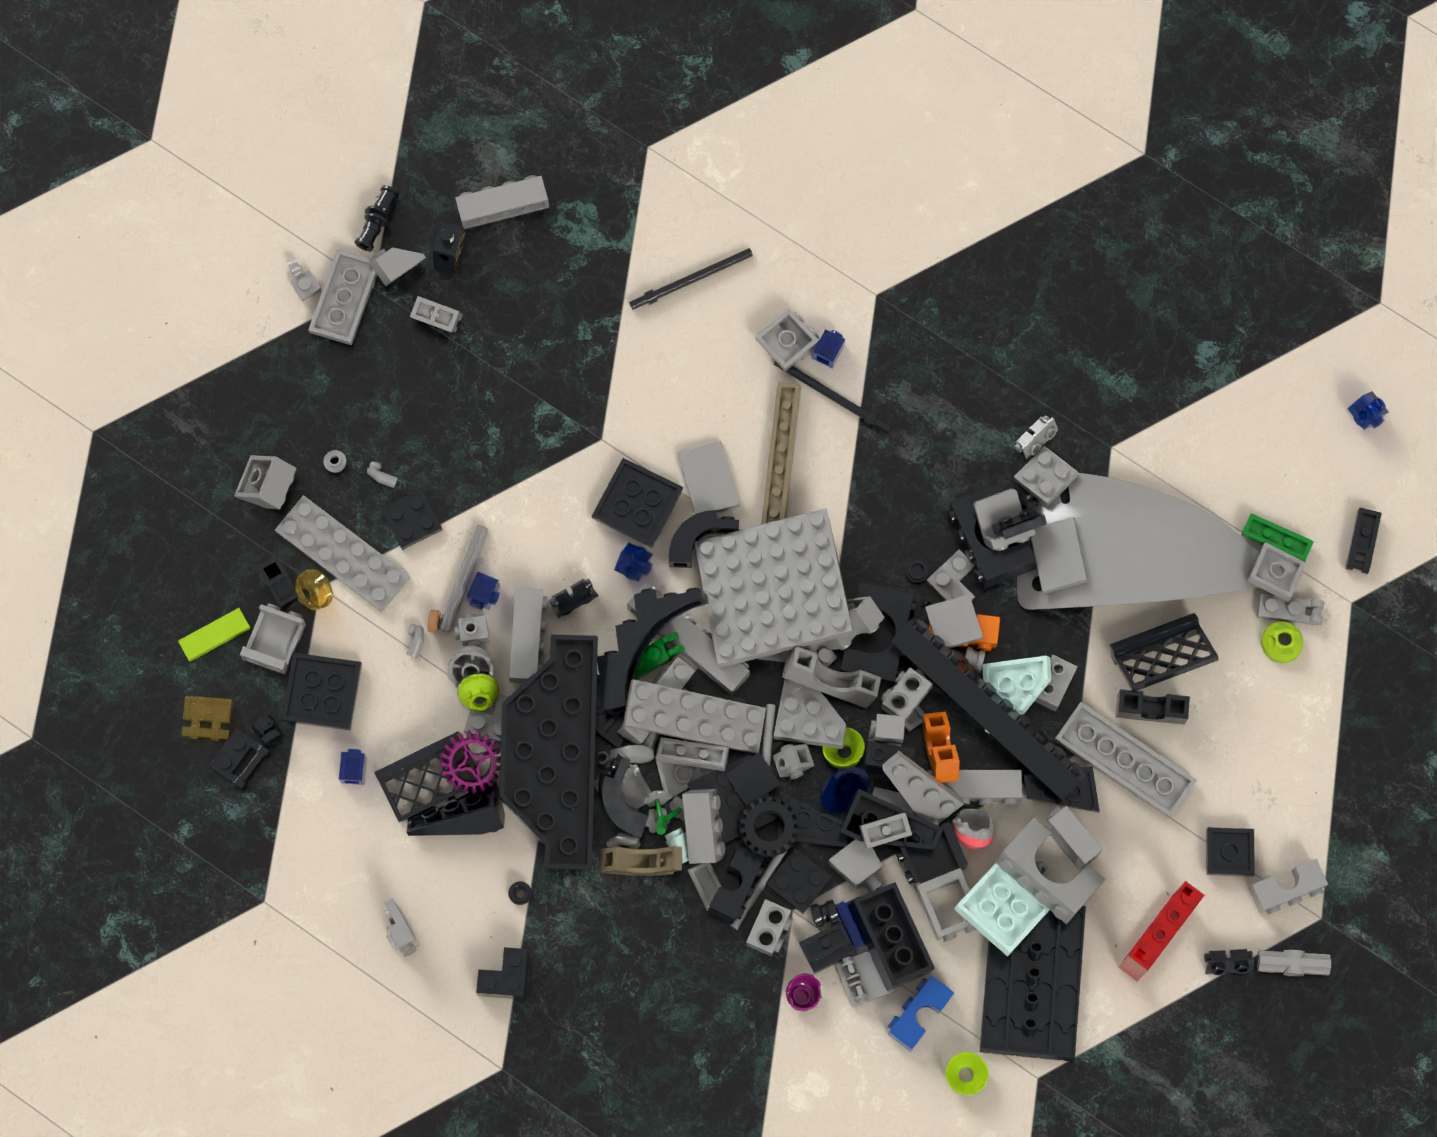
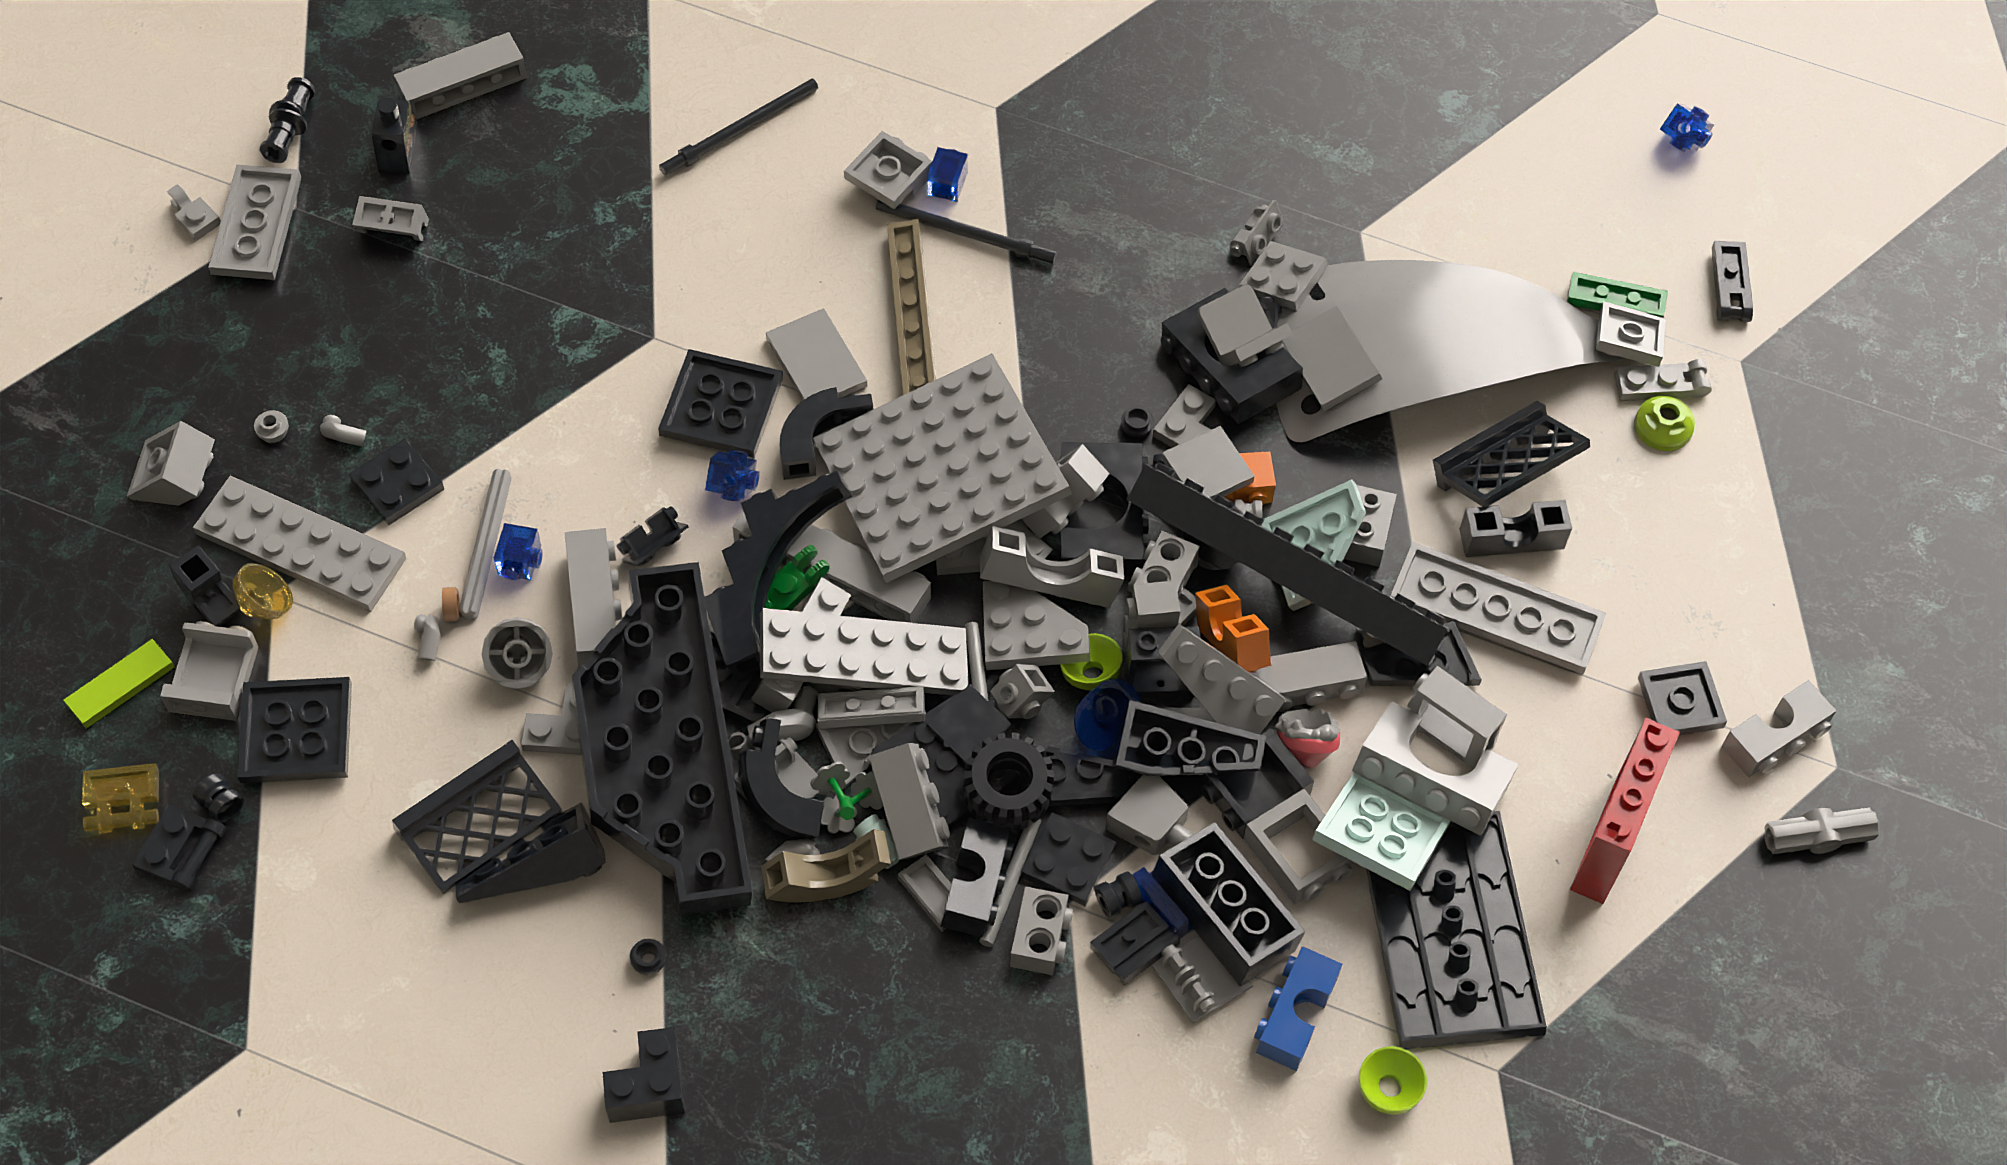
camera: 15 degrees left, 15 degrees down
(353, 767) = (358, 825): clear blue brick -> none
(394, 263) = (322, 165): light grey slope -> none
(400, 934) = (471, 1044): light grey plate -> none
(472, 622) = (510, 600): light grey brick -> none
(478, 686) = (528, 670): lime piece -> none
(481, 757) = (531, 762): magenta gear -> none
(803, 992) = (1114, 1011): magenta hair -> none
(885, 830) = (1183, 748): light grey plate -> none
(1025, 521) = (1274, 318): black plate -> none
(1240, 962) = (1739, 847): black hinge -> none

